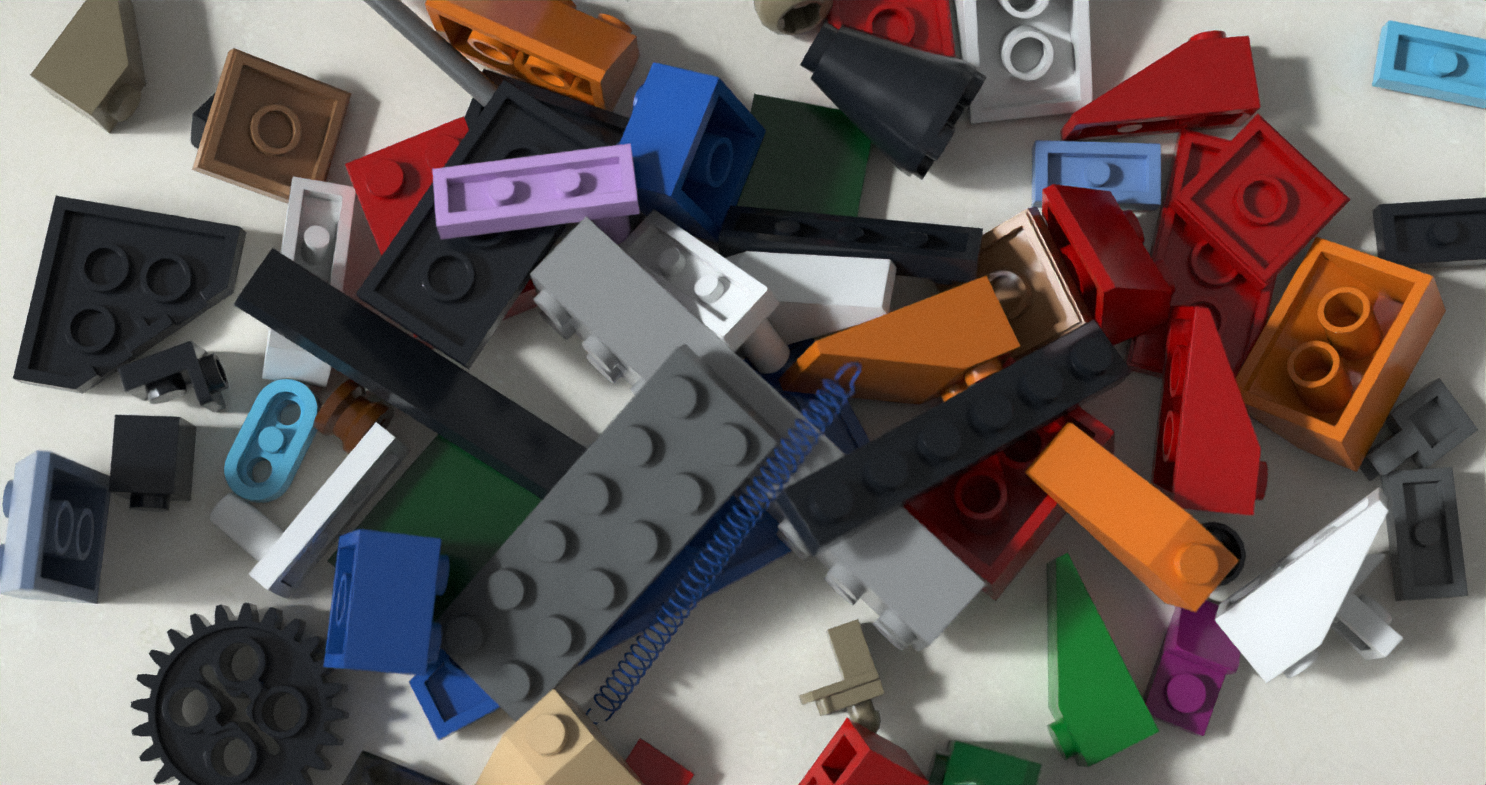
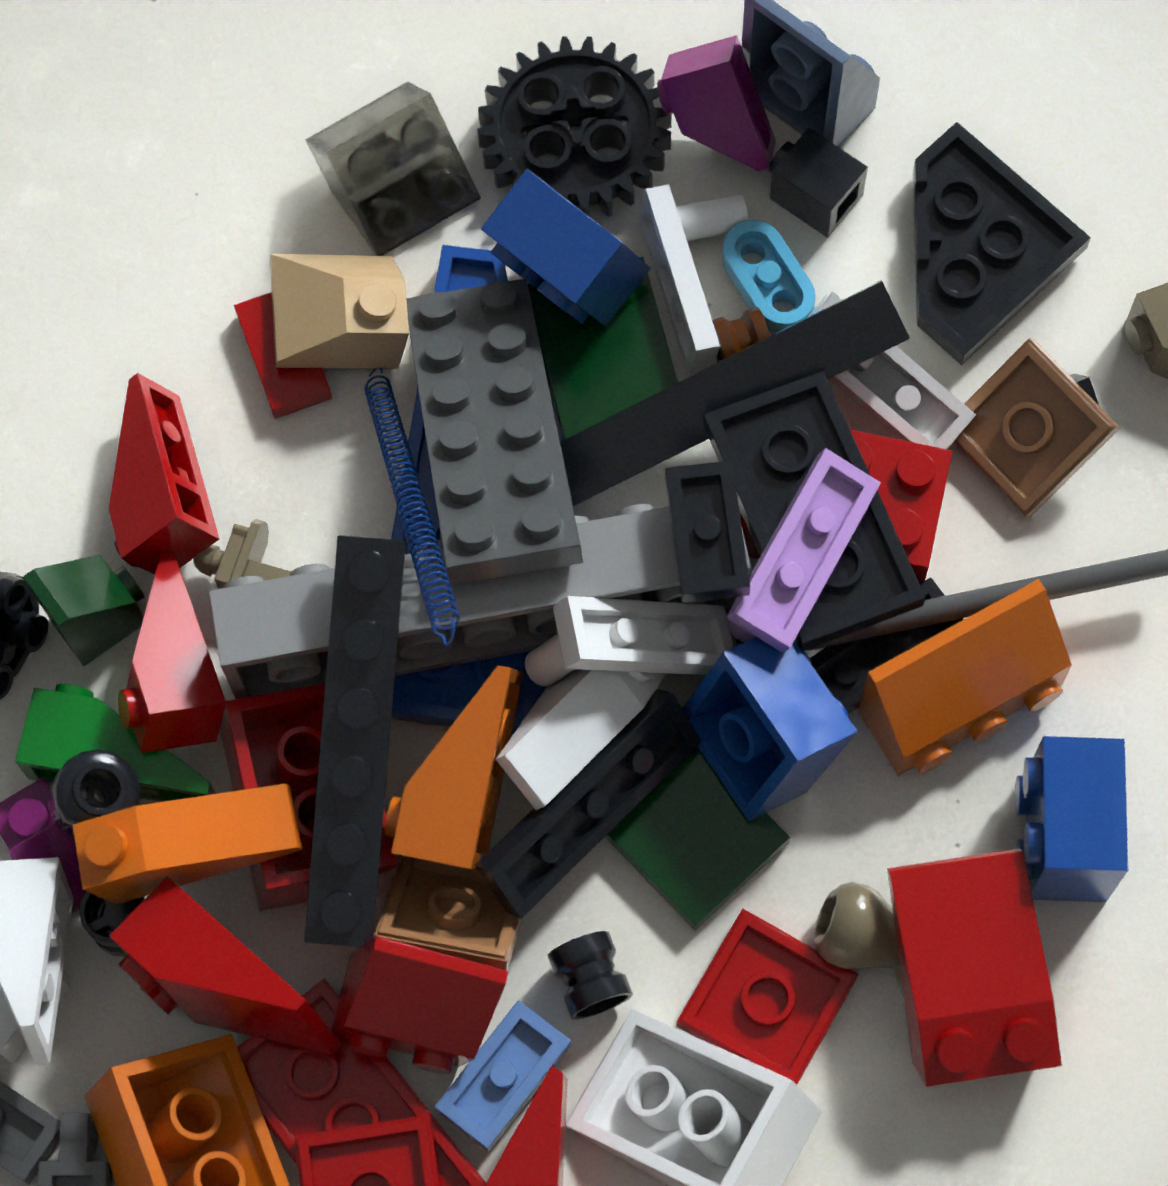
camera: 130 degrees right, 10 degrees down
(135, 590) = (718, 102): none -> magenta slope
(167, 373) = (872, 248): black bracket -> none
(586, 261) = (707, 531): none -> black plate
(893, 92) = (698, 934): black cone -> none
(973, 165) = (588, 971): none -> black wheel
(994, 661) = (171, 683): none -> slope
(1146, 631) = (95, 773): none -> black head

